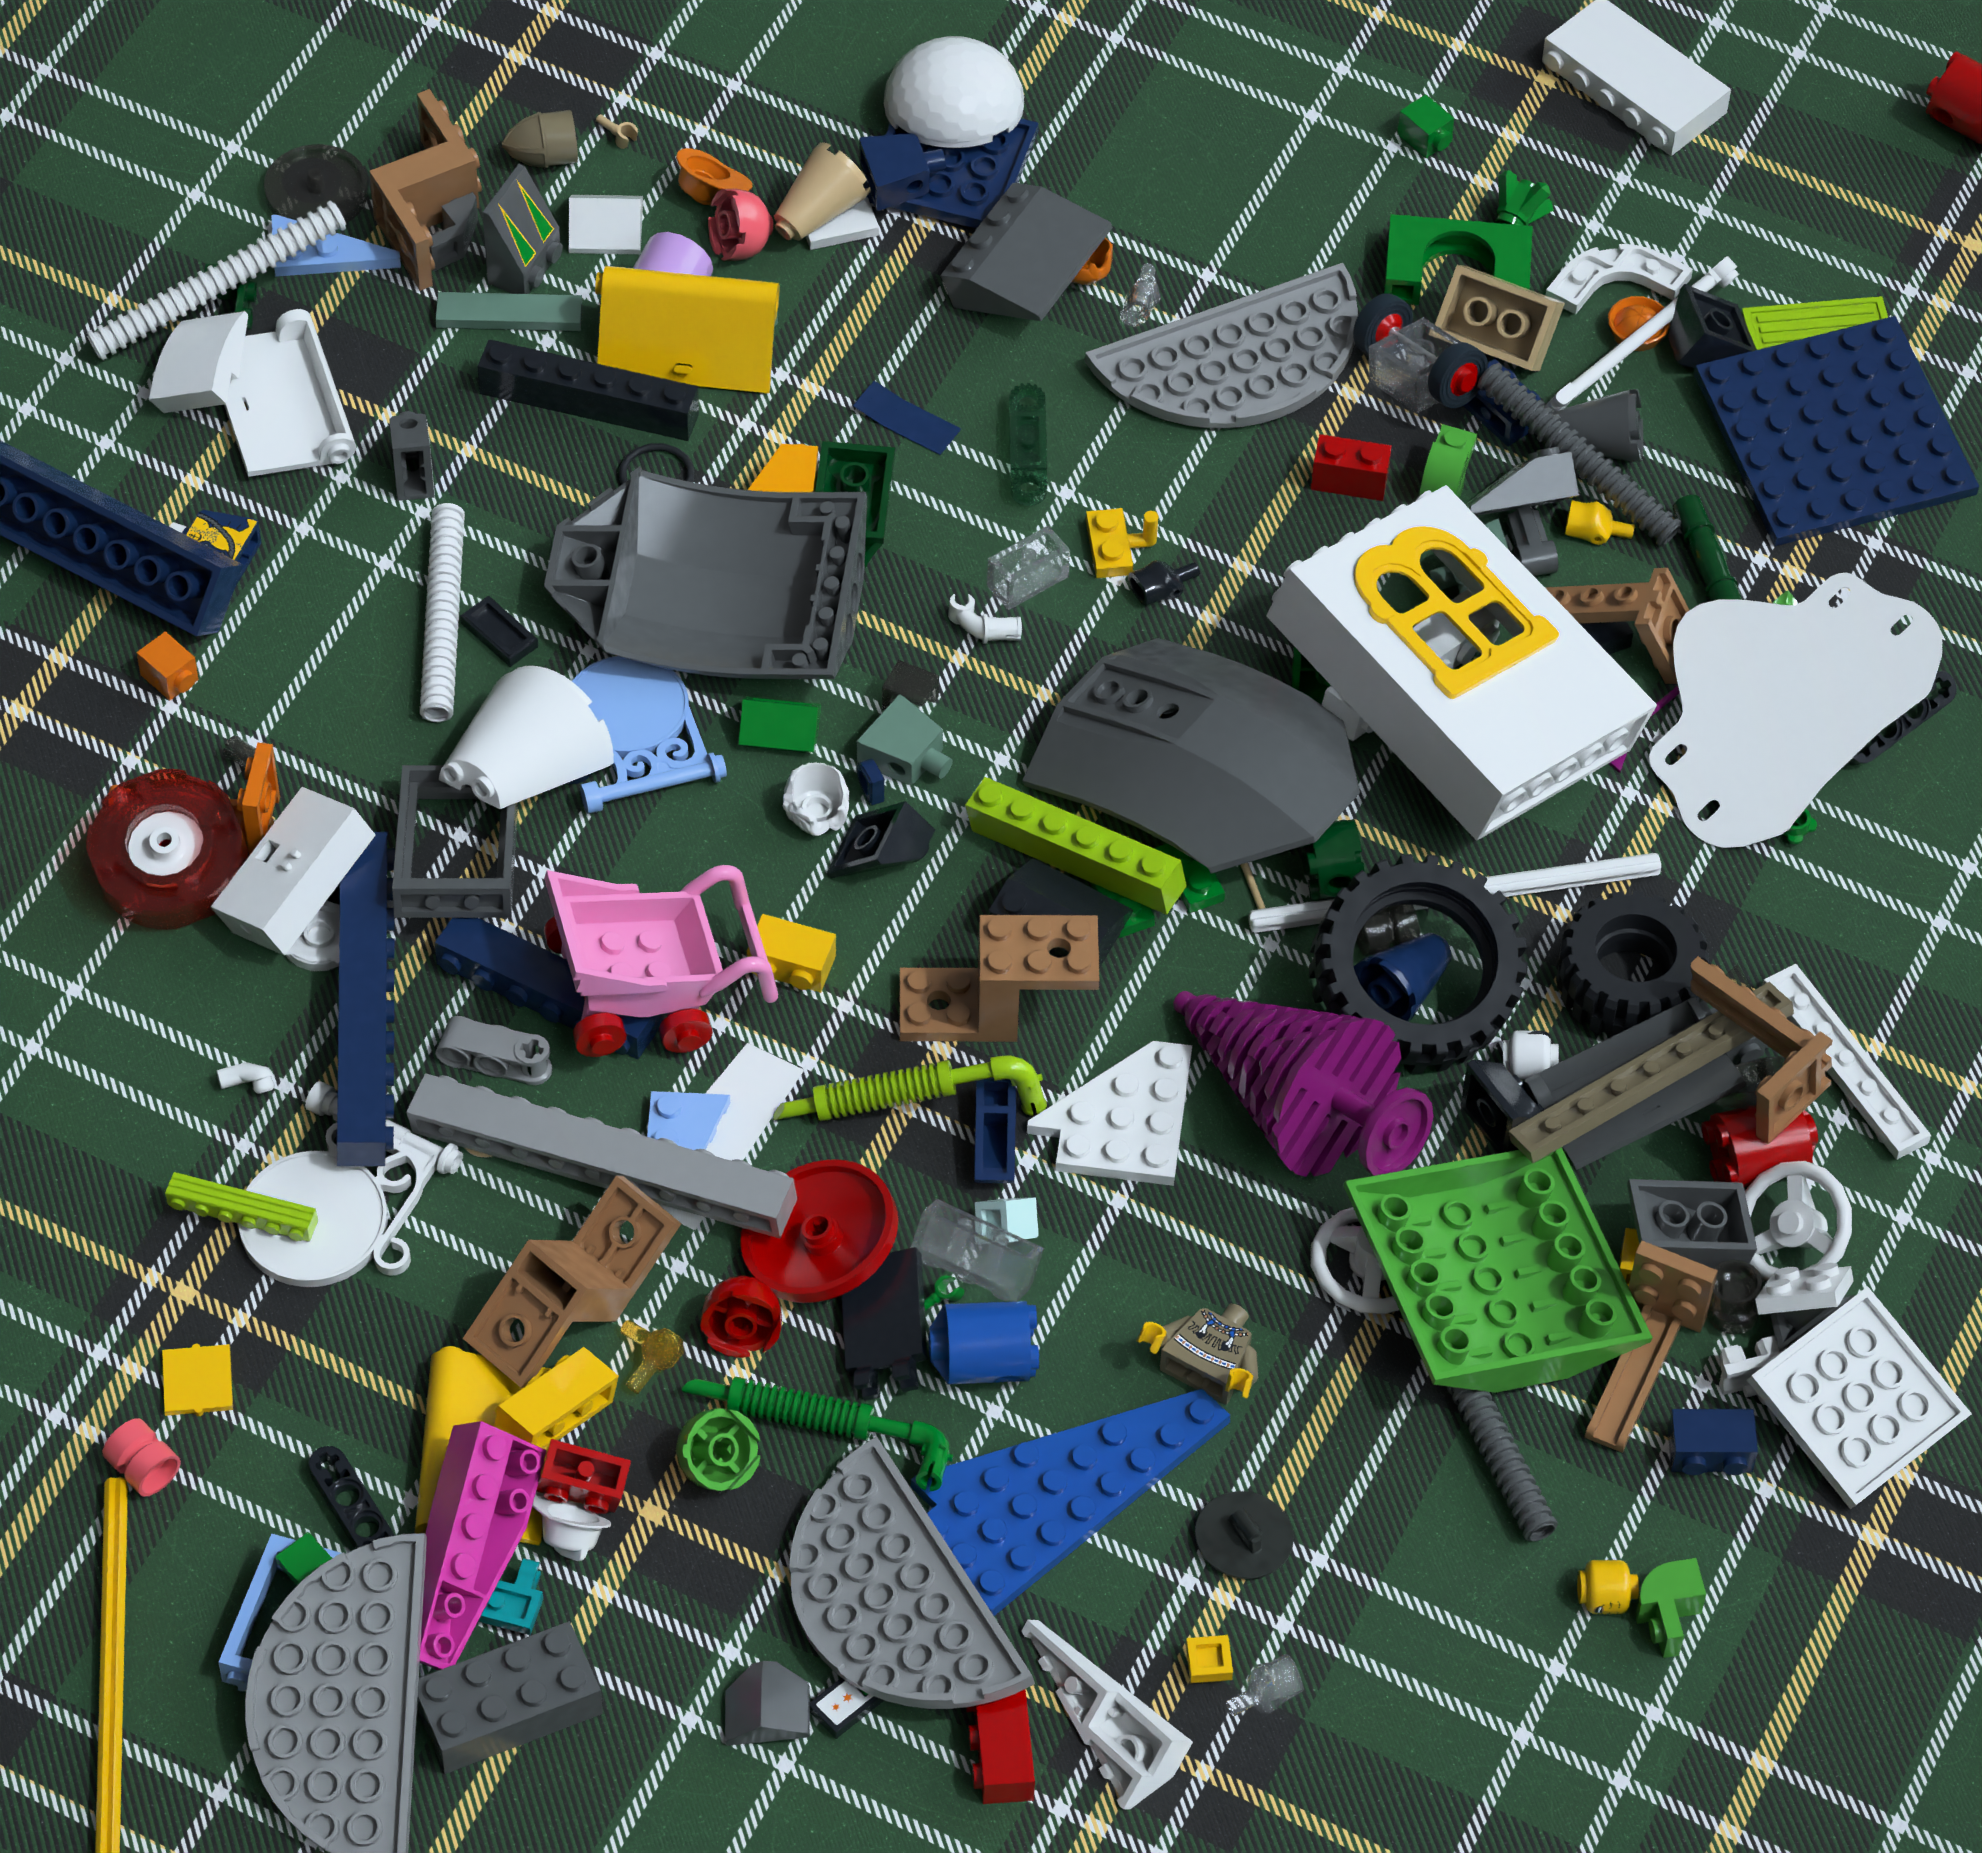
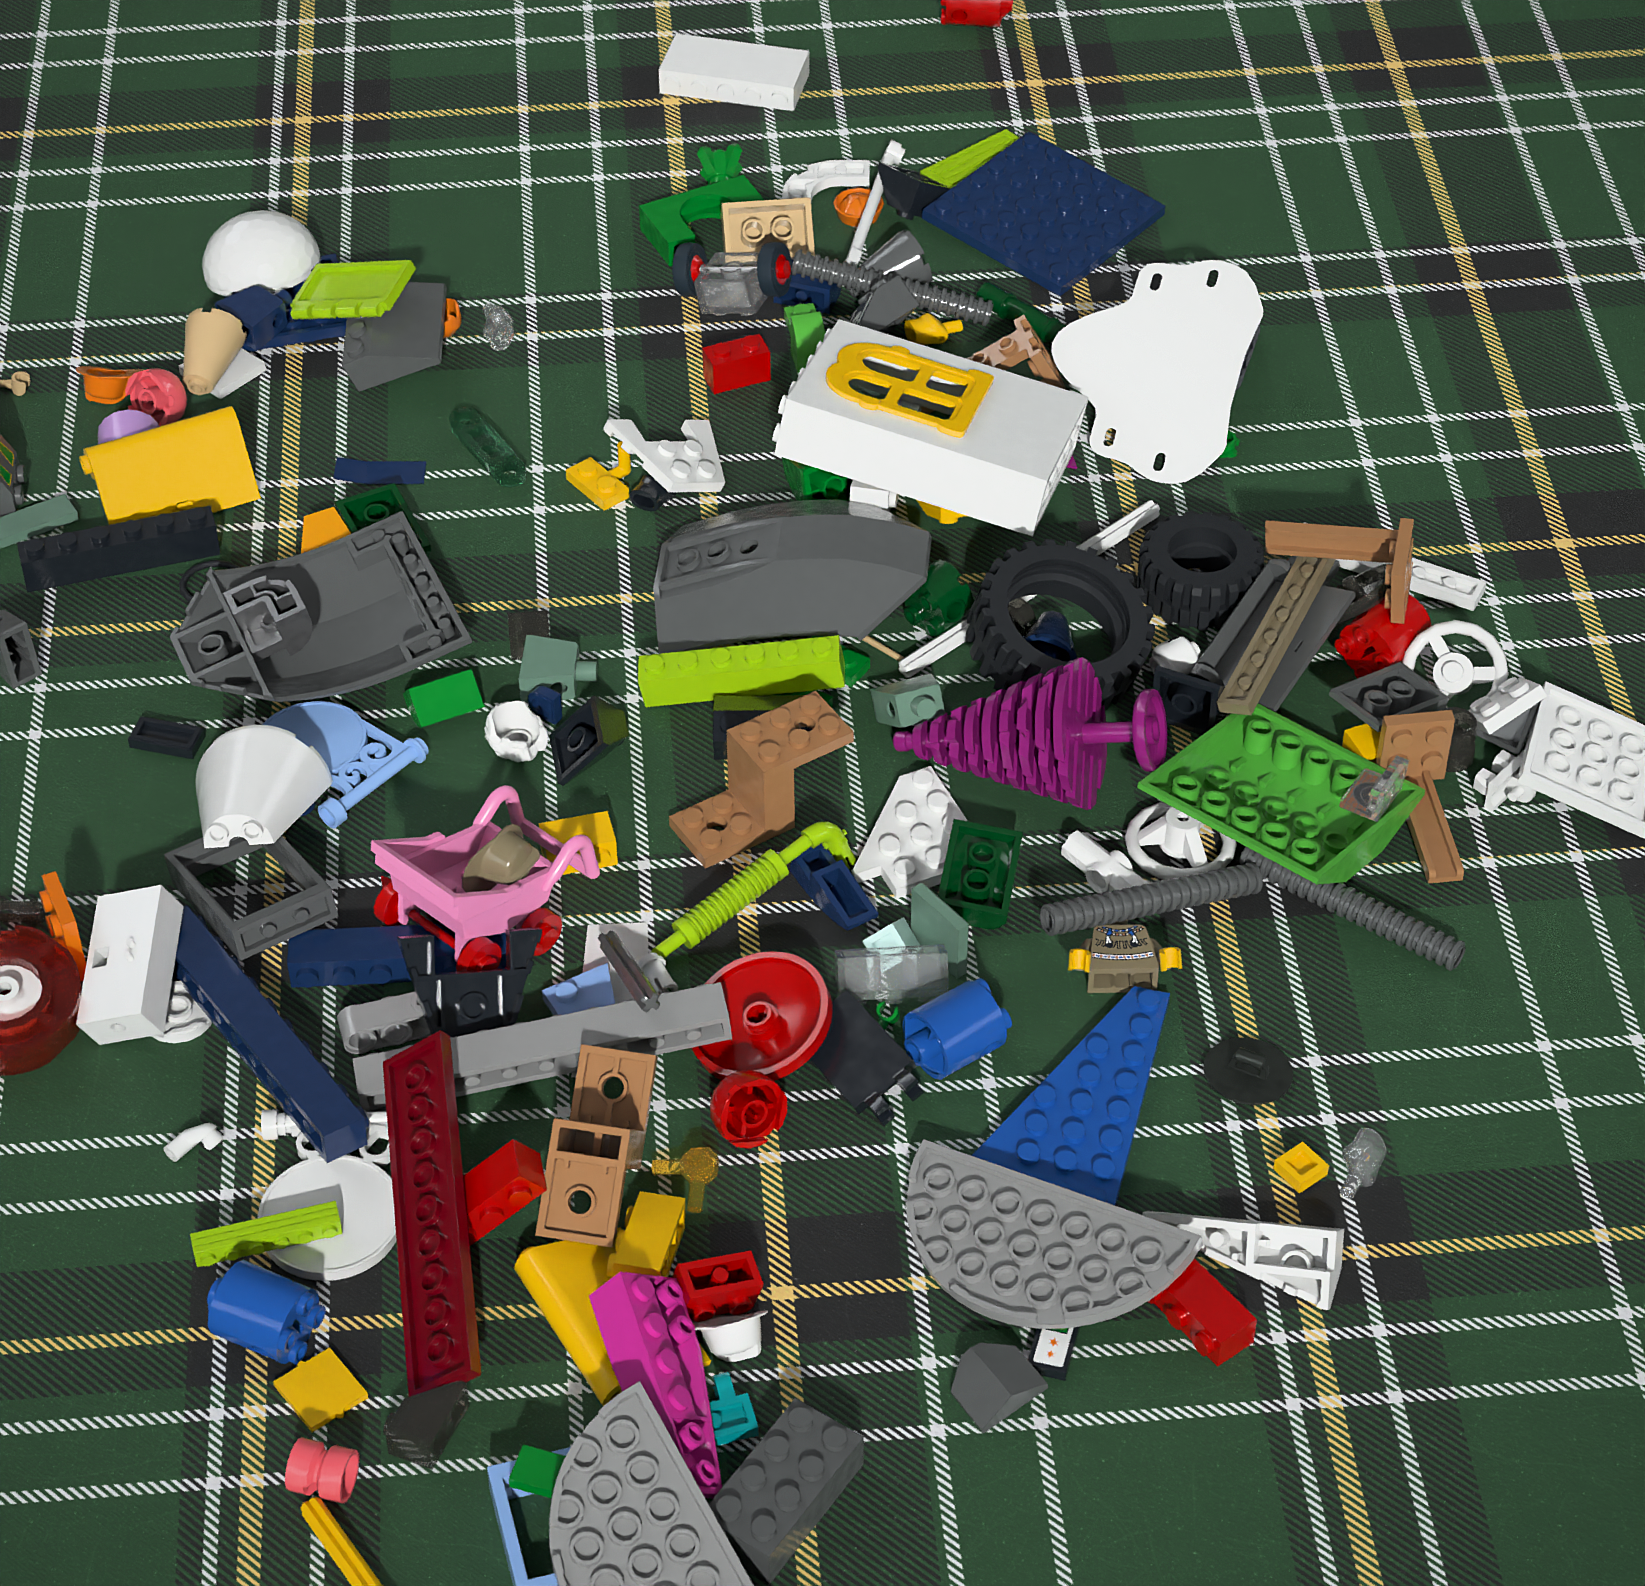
camera: 30 degrees left, 10 degrees down
(187, 1283) = (264, 1312): none -> blue cylinder
(258, 1463) = (426, 1423): none -> clear smoke slope
(348, 1516) = (533, 1426): black beam -> none
(382, 1270) = (430, 1216): none -> dark red plate
(442, 613) = (112, 743): white piece -> none
(444, 1277) = (501, 1187): none -> red brick
(567, 1072) = (472, 999): none -> black wing
(605, 224) = (47, 442): white slope -> none
(658, 552) = (270, 616): none -> flat silver brick
(666, 948) = (500, 861): none -> dark tan piece
(718, 1449) = (808, 1210): bright green cylinder -> none
(727, 1118) = (629, 971): none -> dark grey axle
(767, 1125) = (655, 971): none -> white pin
(830, 1416) = (871, 1146): green piece -> none
(984, 627) = (548, 572): white piece -> none
(1005, 187) = (351, 289): none -> lime hinge
(1028, 567) = (555, 517): clear brick -> none
(1051, 1231) = (939, 924): none -> sand green tile
(1139, 1188) = (980, 872): none -> dark green slope
(1199, 565) = (675, 464): none -> white wing
(1221, 964) = (912, 700): none -> sand green torso
(1239, 358) = (597, 336): light grey plate -> none
(1273, 1255) = (1102, 869): none -> white piece
(1278, 1308) = (1150, 899): none -> dark grey piece
(1426, 126) = (616, 152): green brick -> none
(1587, 1313) = (1373, 791): none -> clear panel
(1607, 1586) = (1534, 969): yellow head -> none
(1667, 1594) = (1586, 958): bright green brick -> none
(1712, 1441) = (1519, 839): dark blue brick -> none

